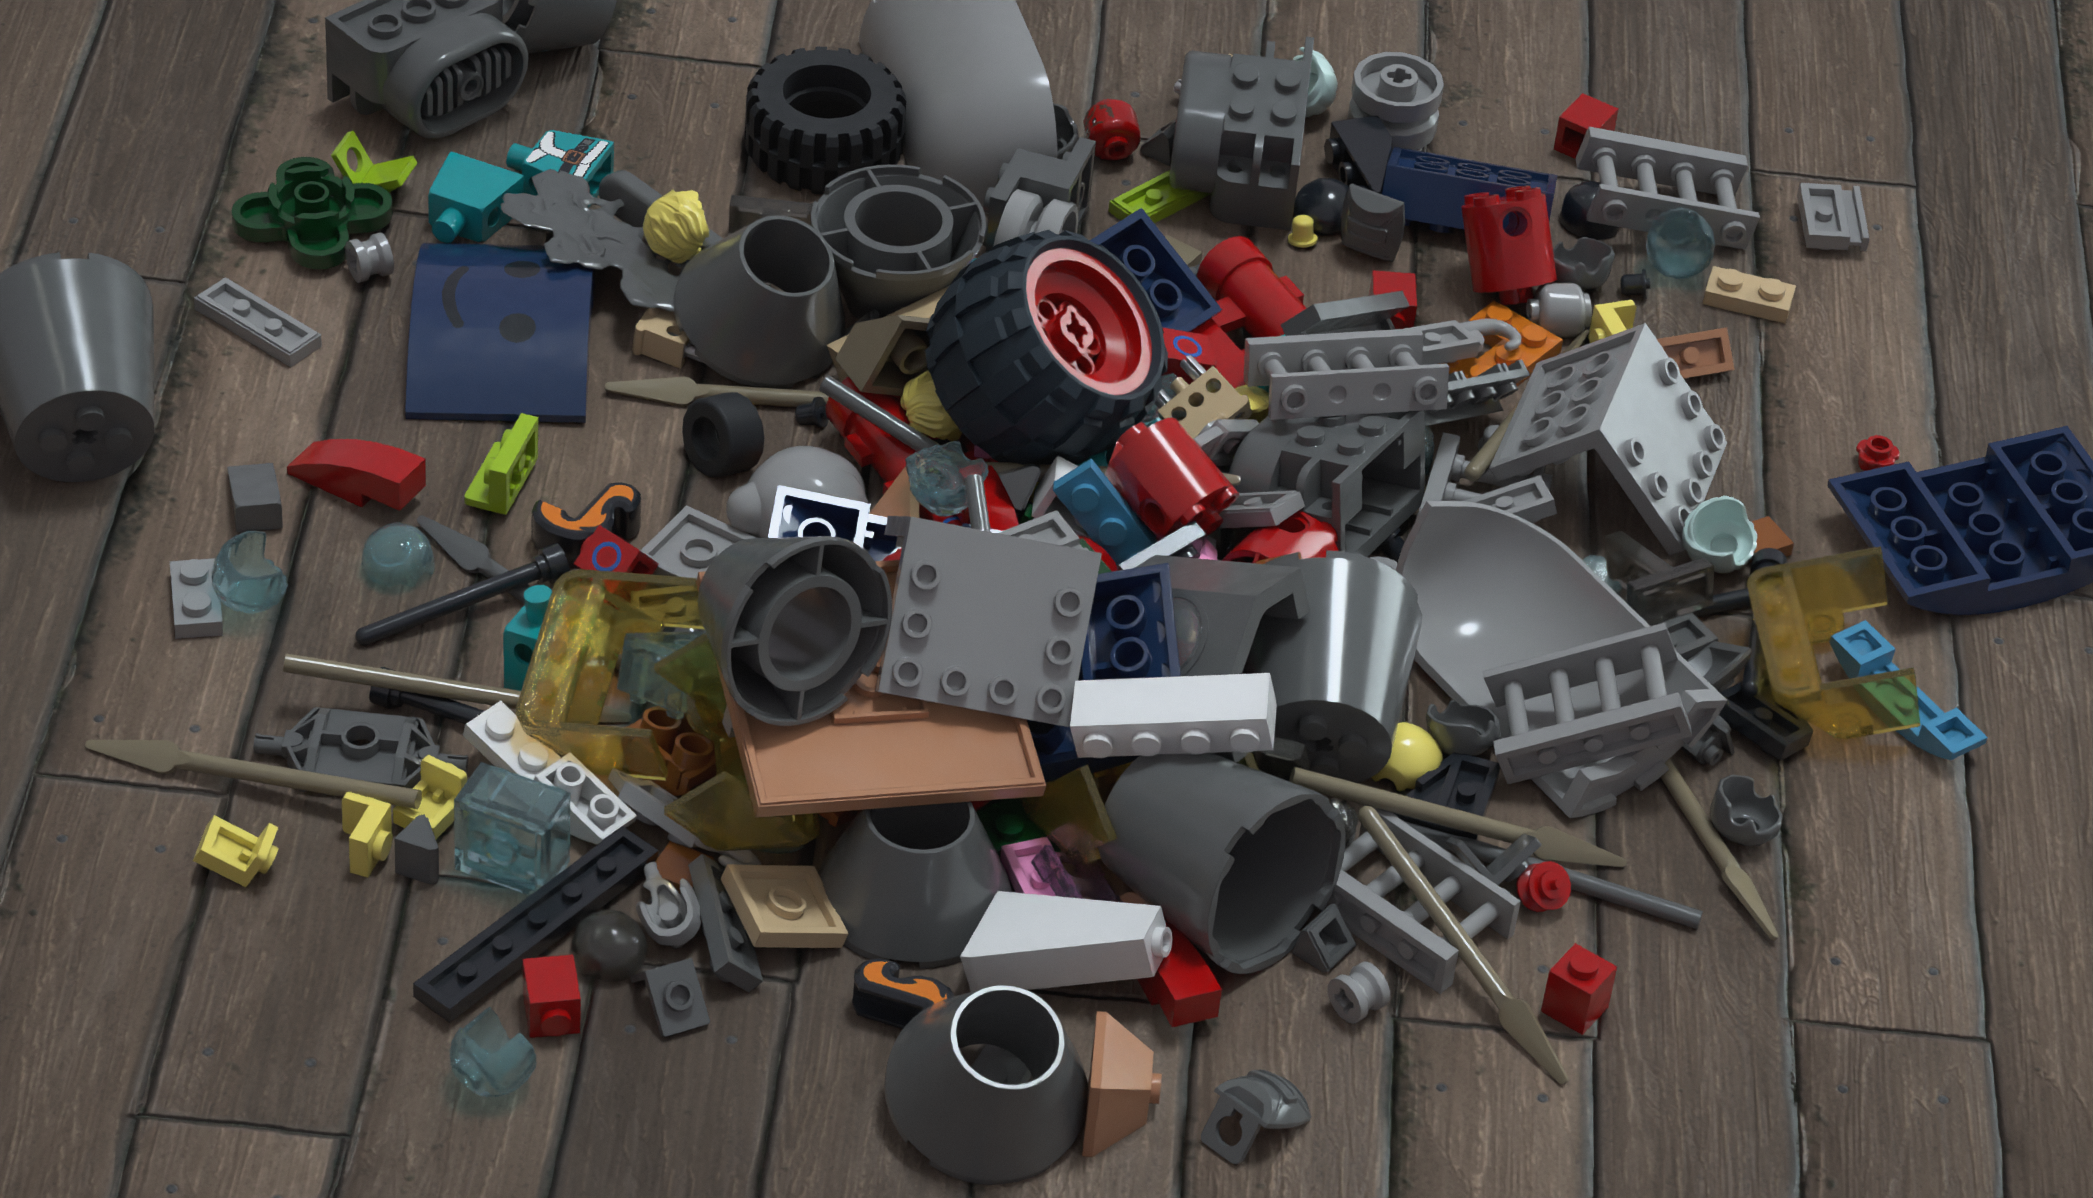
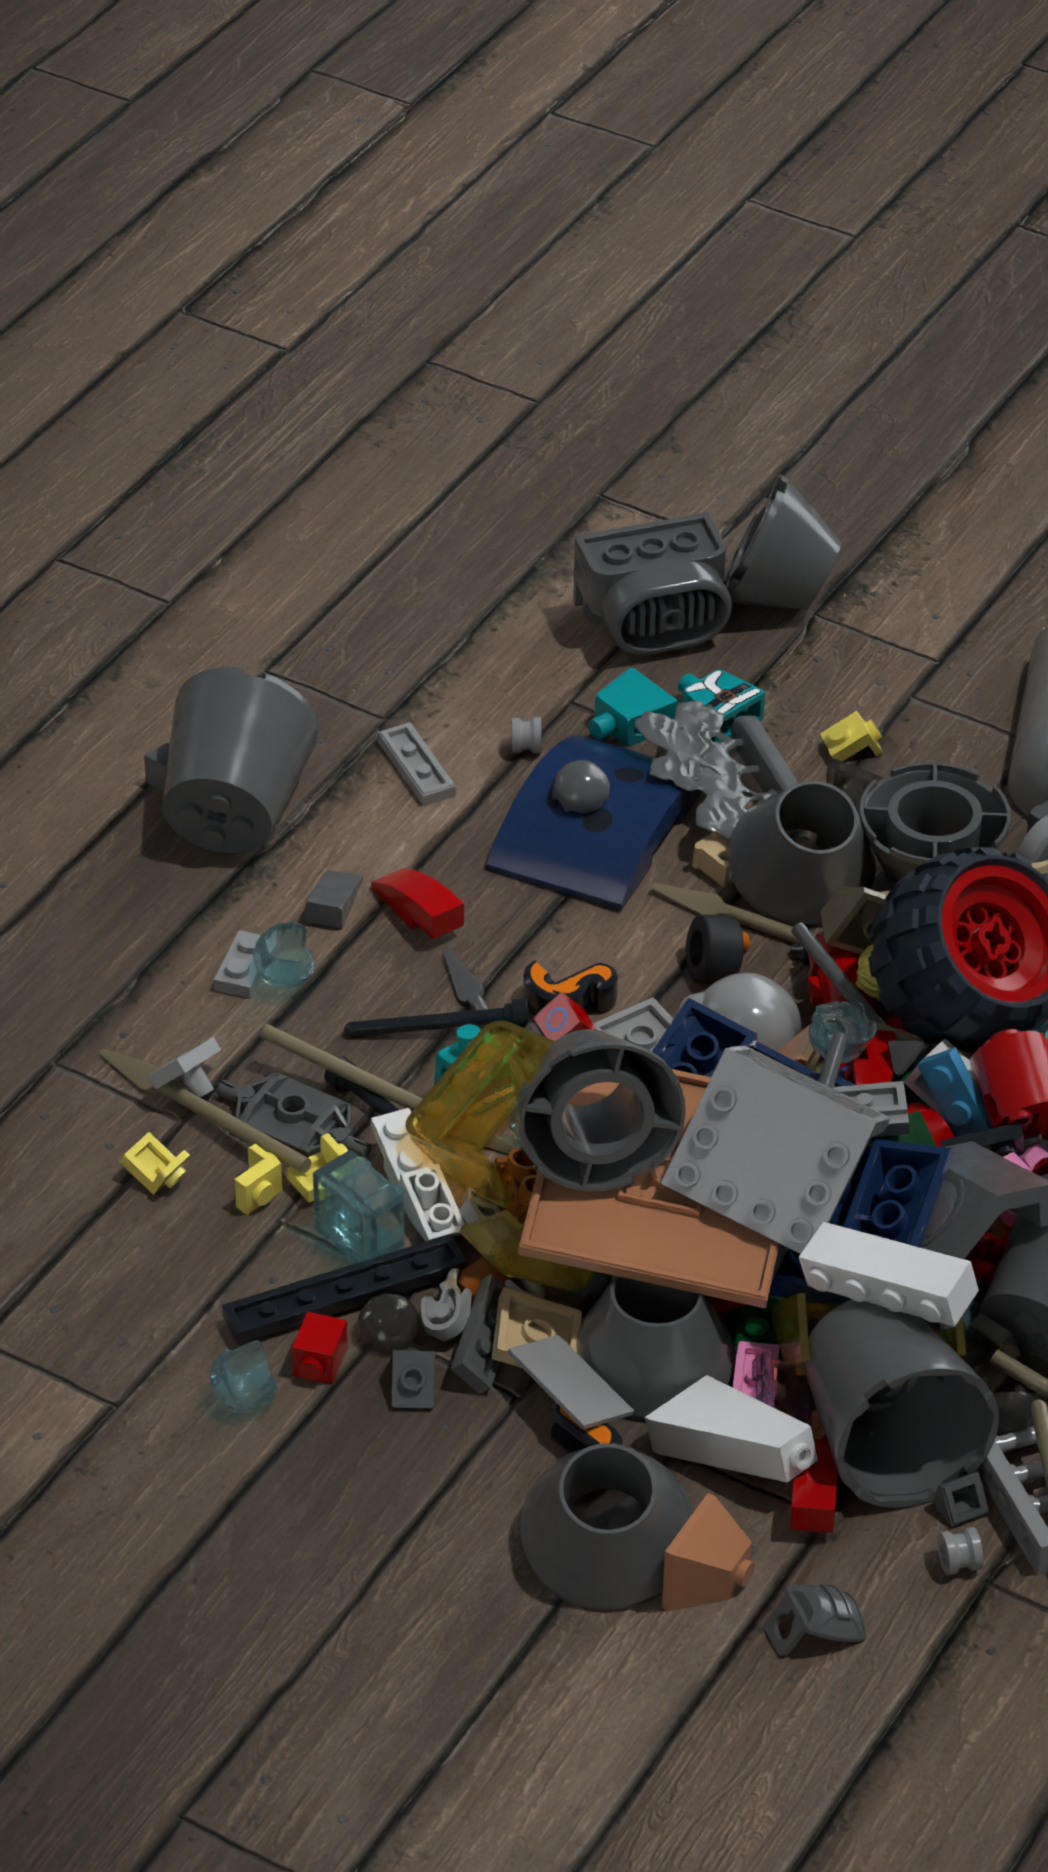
camera: 30 degrees right, 0 degrees up
(210, 729) = (188, 1069): none -> light grey tile
(312, 212) = (505, 688): dark green plant -> none
(385, 174) = (568, 671): lime bracket -> none
(397, 555) = (411, 973): clear light blue hair -> none
(417, 852) = (287, 1205): dark grey slope -> none
(484, 294) = (581, 786): none -> dark grey hair
(505, 467) = (531, 928): lime bracket -> none
(676, 226) = (760, 770): light yellow hair -> none
(727, 169) = (851, 736): none -> light yellow bracket
(823, 117) = (957, 687): black tyre -> none
(859, 943) = (570, 1382): none -> light grey piece

